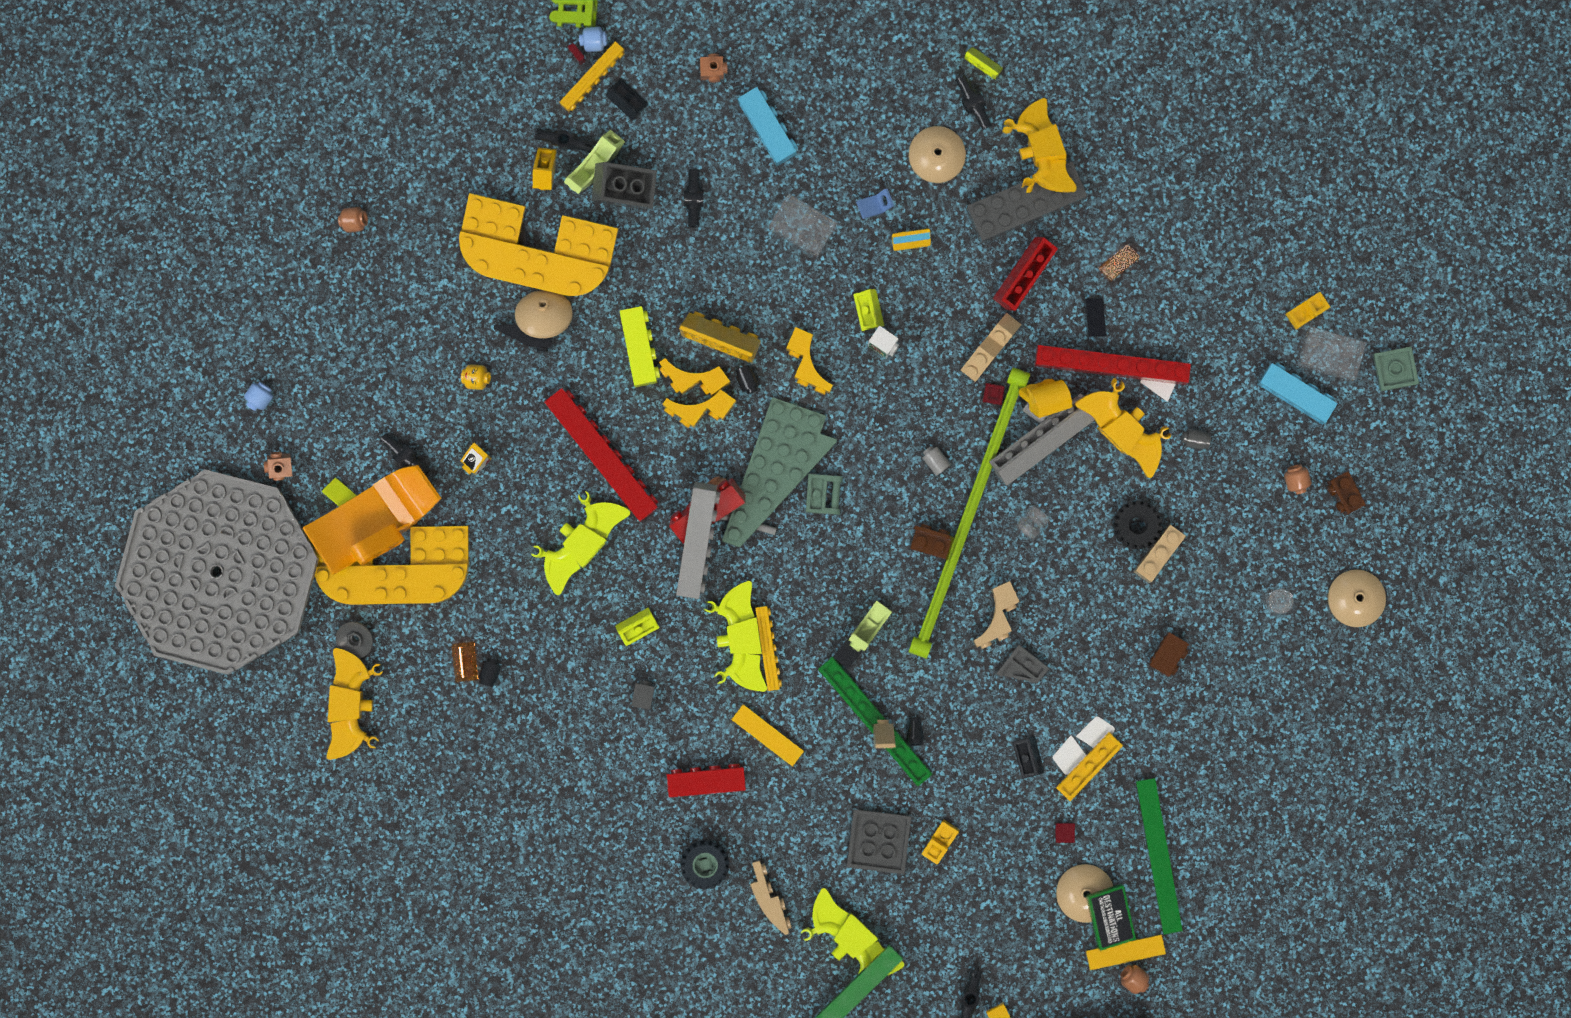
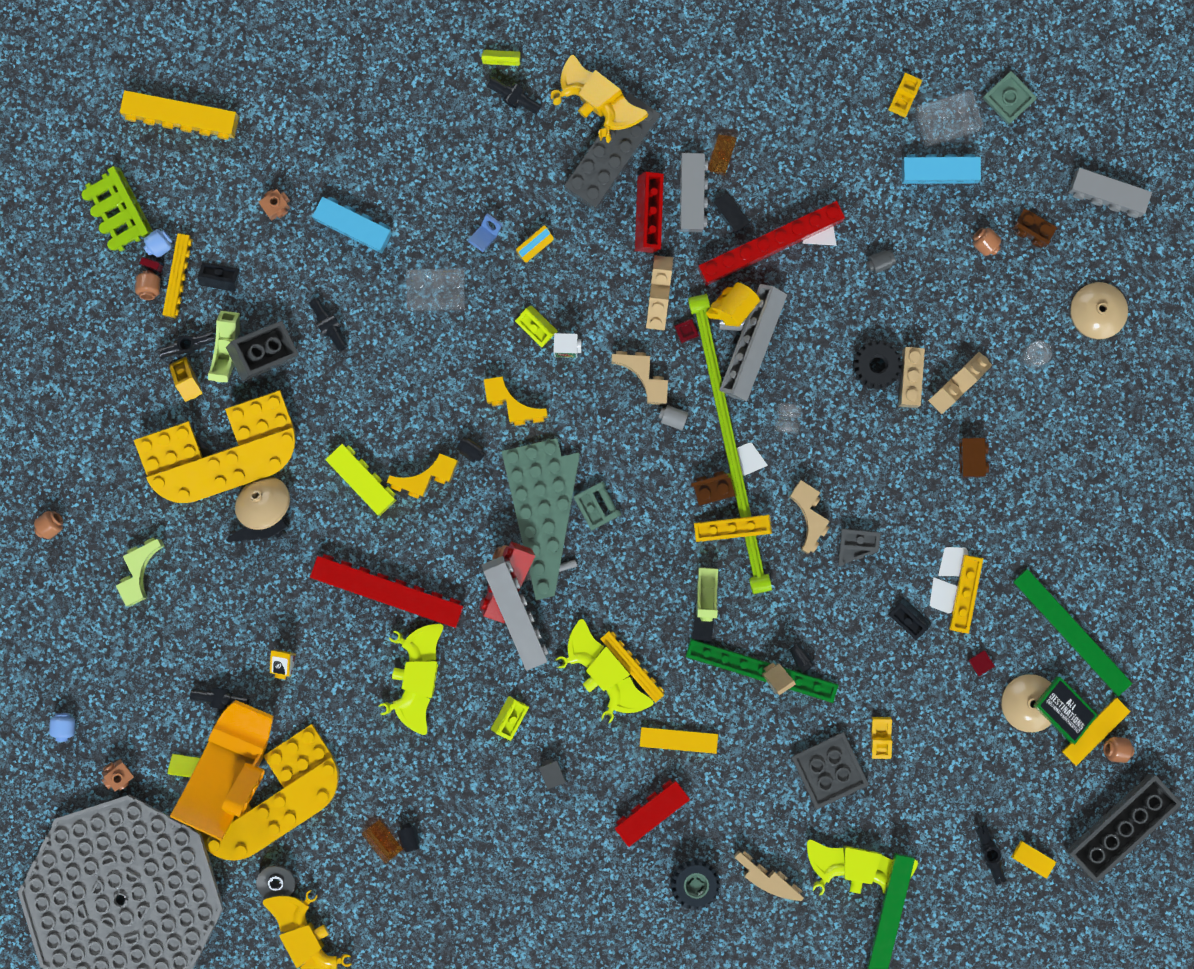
camera: 30 degrees left, 0 degrees up
(408, 295) = (132, 588): none -> yellowish green arch
(475, 377) = (238, 593): yellow head -> none
(562, 69) = (147, 285): none -> nougat head
(691, 414) = (460, 487): yellow arch -> none
(719, 337) = (425, 428): yellow slope -> none
(926, 585) = (733, 528): none -> yellow tile
(935, 167) = (513, 171): tan dish -> none
(935, 398) = (639, 364): none -> tan arch
(978, 536) = (750, 459): none -> white sticker
(1073, 279) = (692, 192): none -> light grey brick
(1123, 428) = (815, 291): yellow torso -> none
(1198, 584) = (960, 383): none -> tan arch
(1429, 503) = (1110, 192): none -> light grey brick

